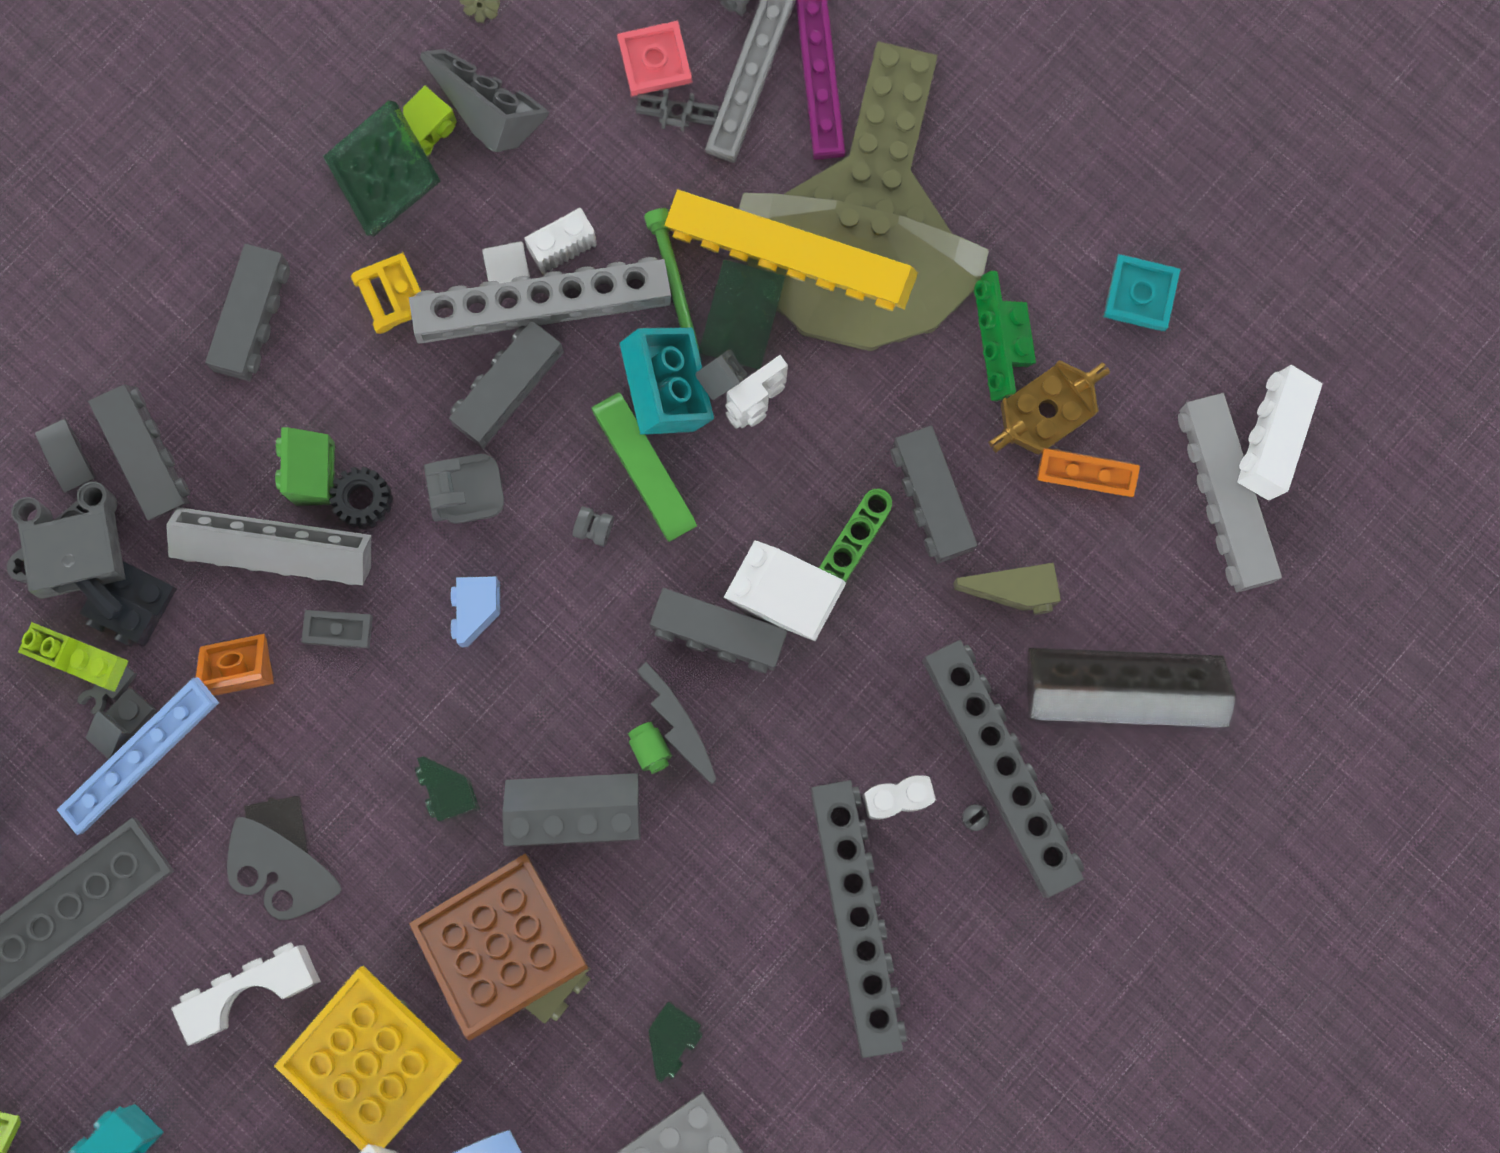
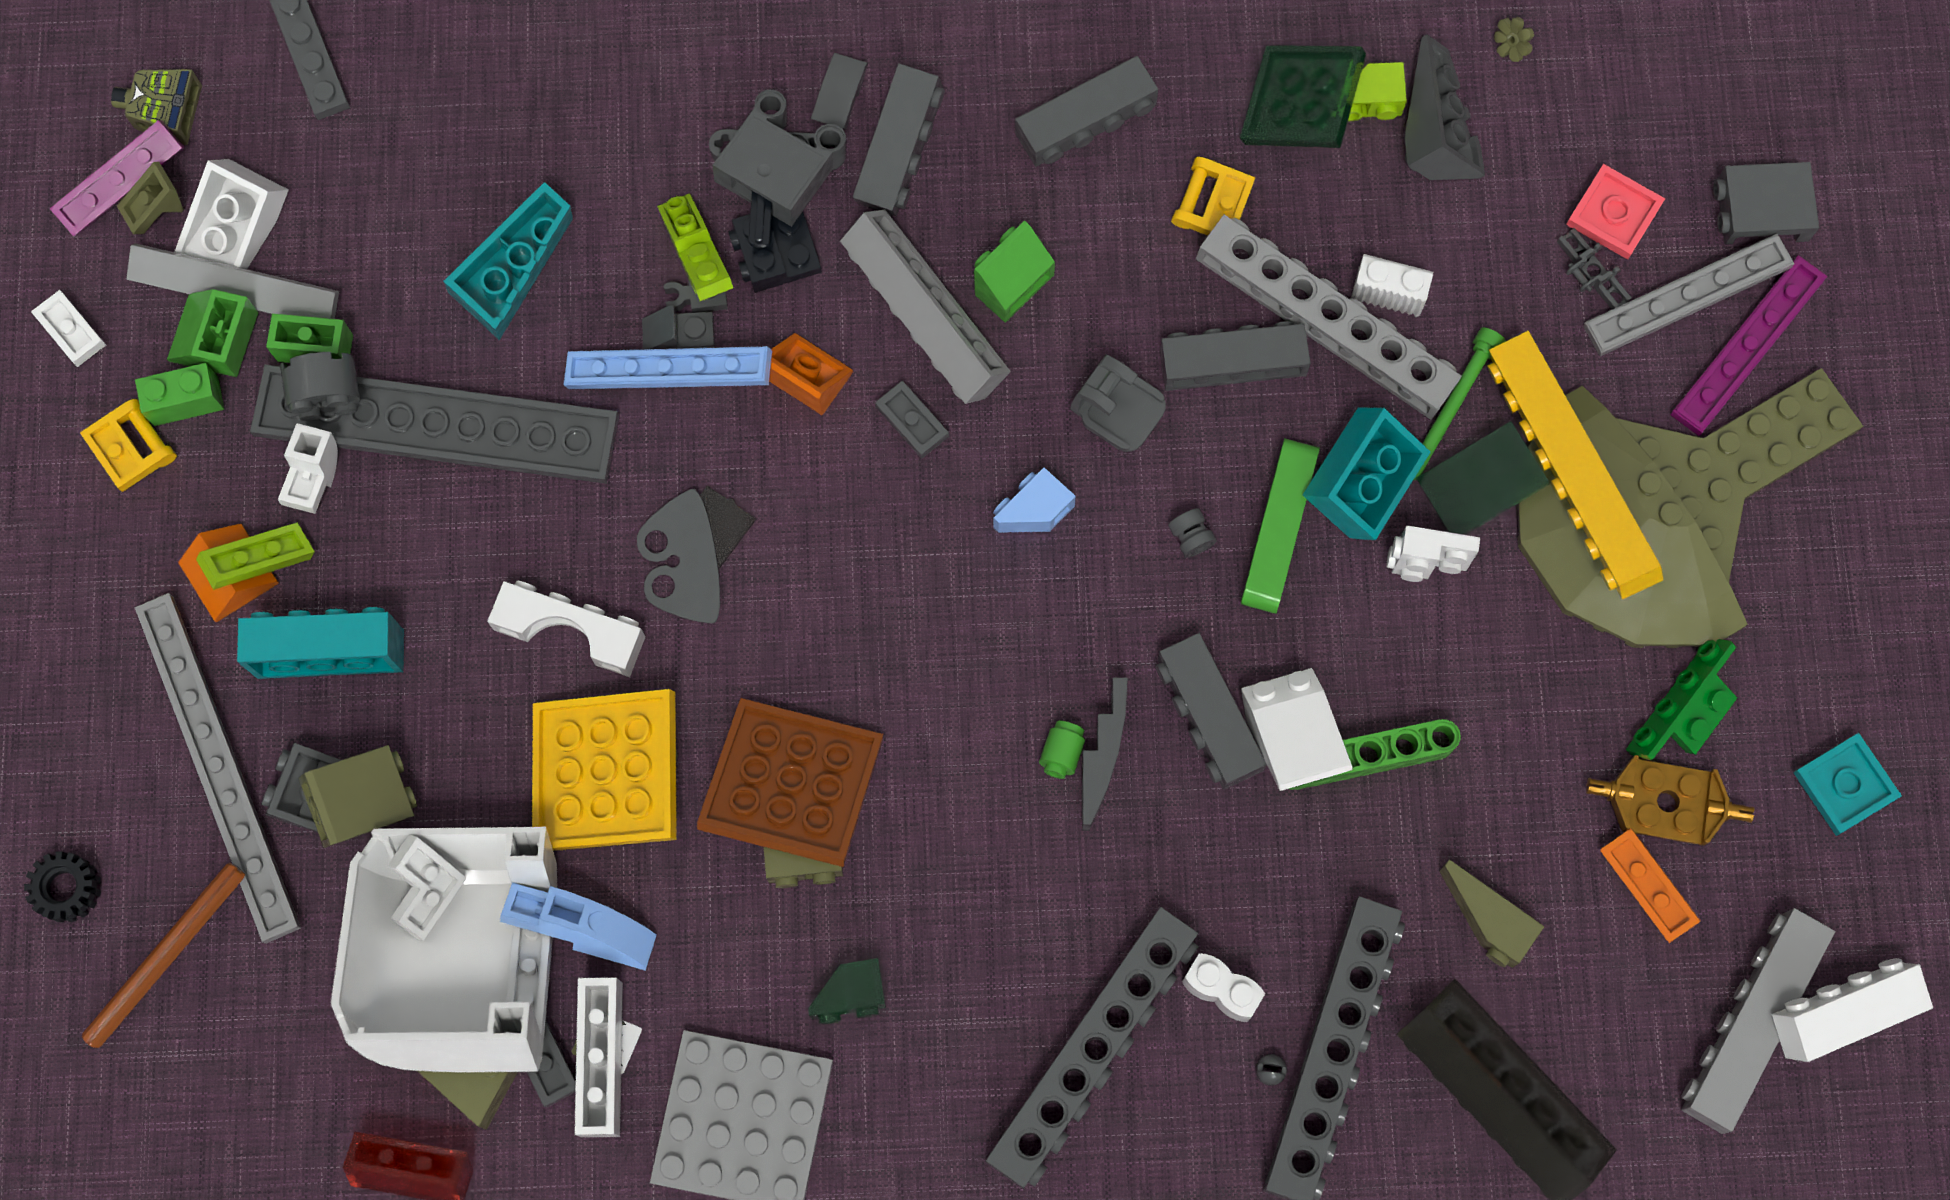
camera: 50 degrees right, 5 degrees down
(347, 484) = (1035, 316): black tyre -> none
(448, 790) = (872, 627): clear green slope -> none
(505, 262) = (1330, 261): white sticker -> none
(571, 810) = (951, 738): dark grey slope -> none
(721, 374) = (1416, 509): dark grey slope -> none
(934, 495) = (1499, 776): dark grey brick -> none

